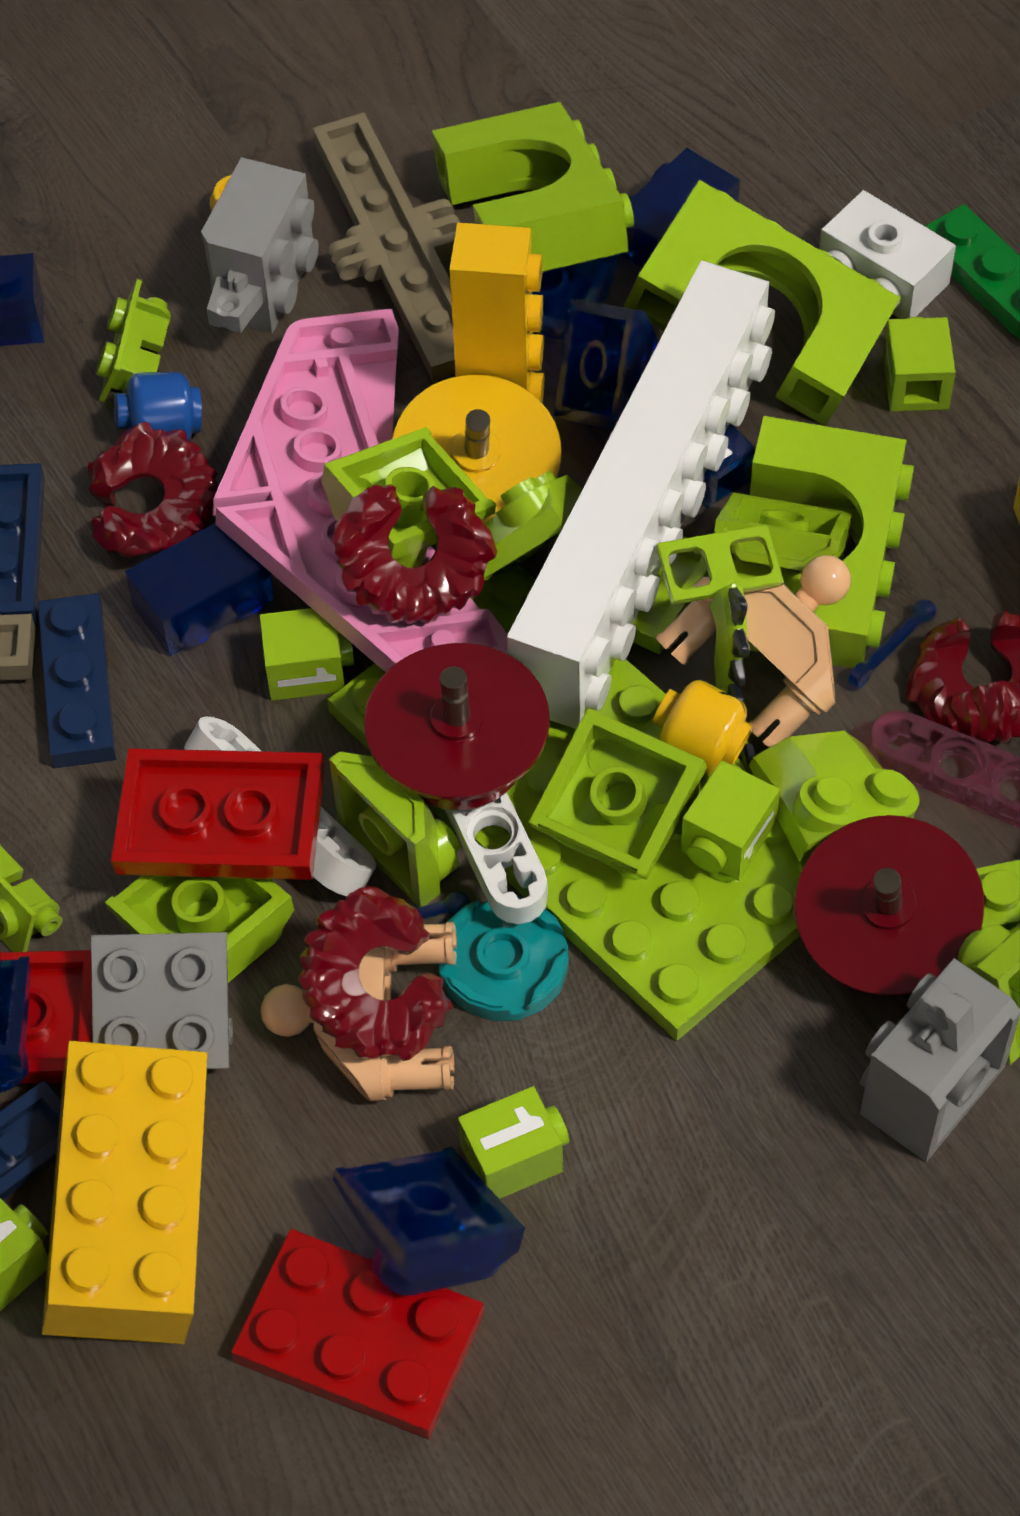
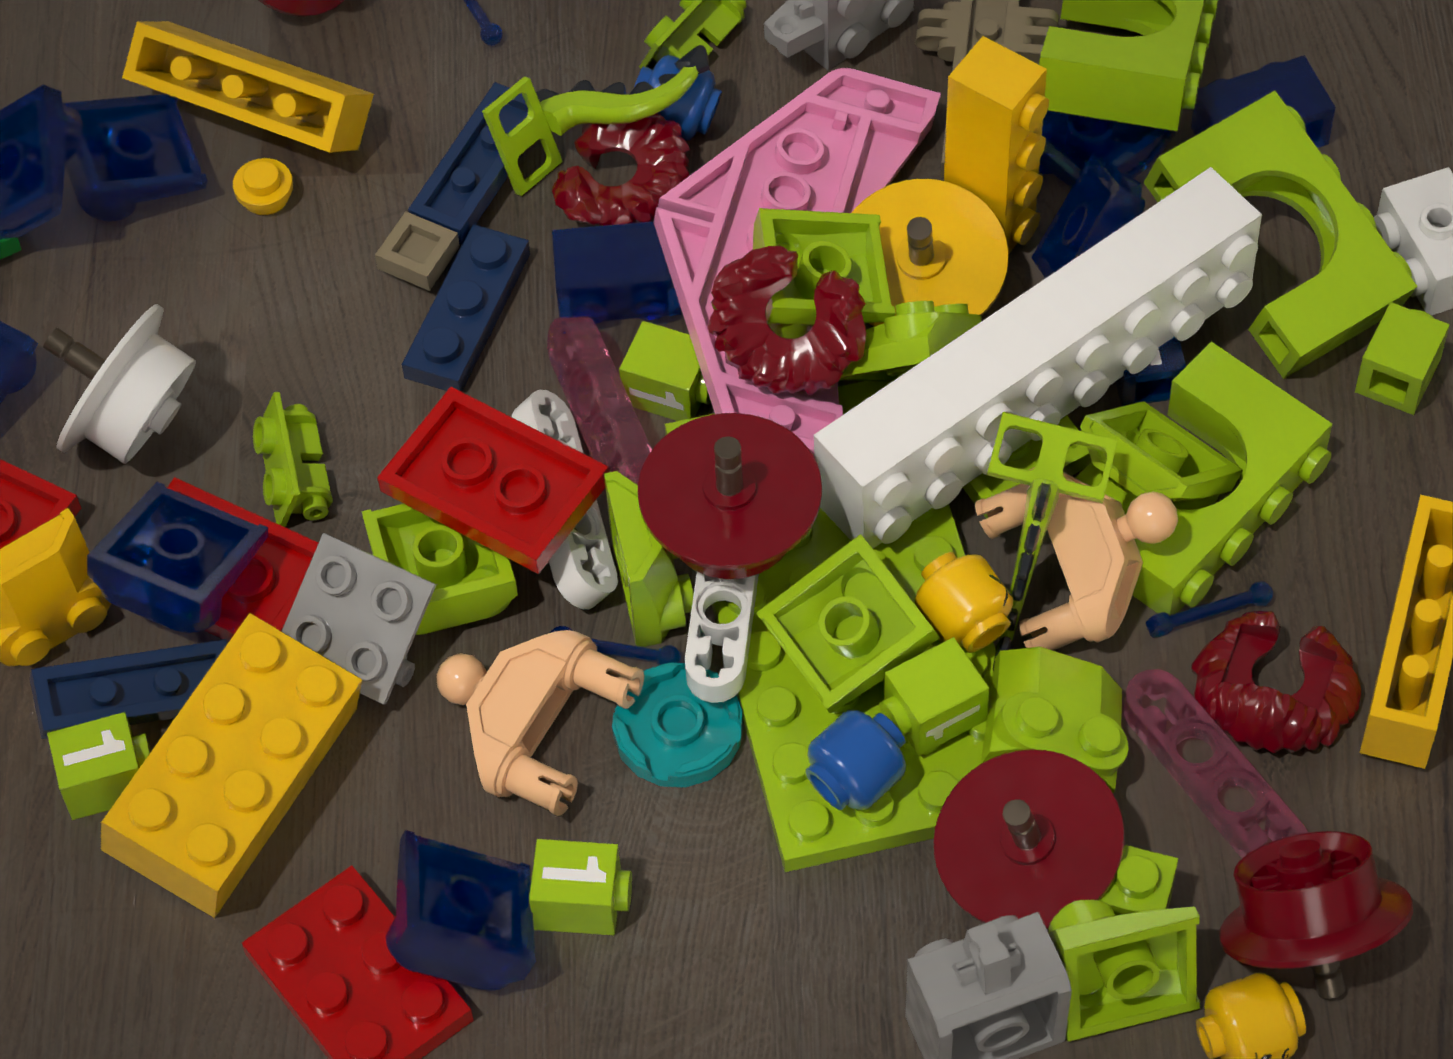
camera: 30 degrees right, 0 degrees up
(85, 449) = (581, 105): none -> lime piece
(213, 677) = (597, 395): none -> clear pink beam
(333, 984) = (491, 675): dark red piece -> none
(697, 908) = (856, 760): none -> blue head

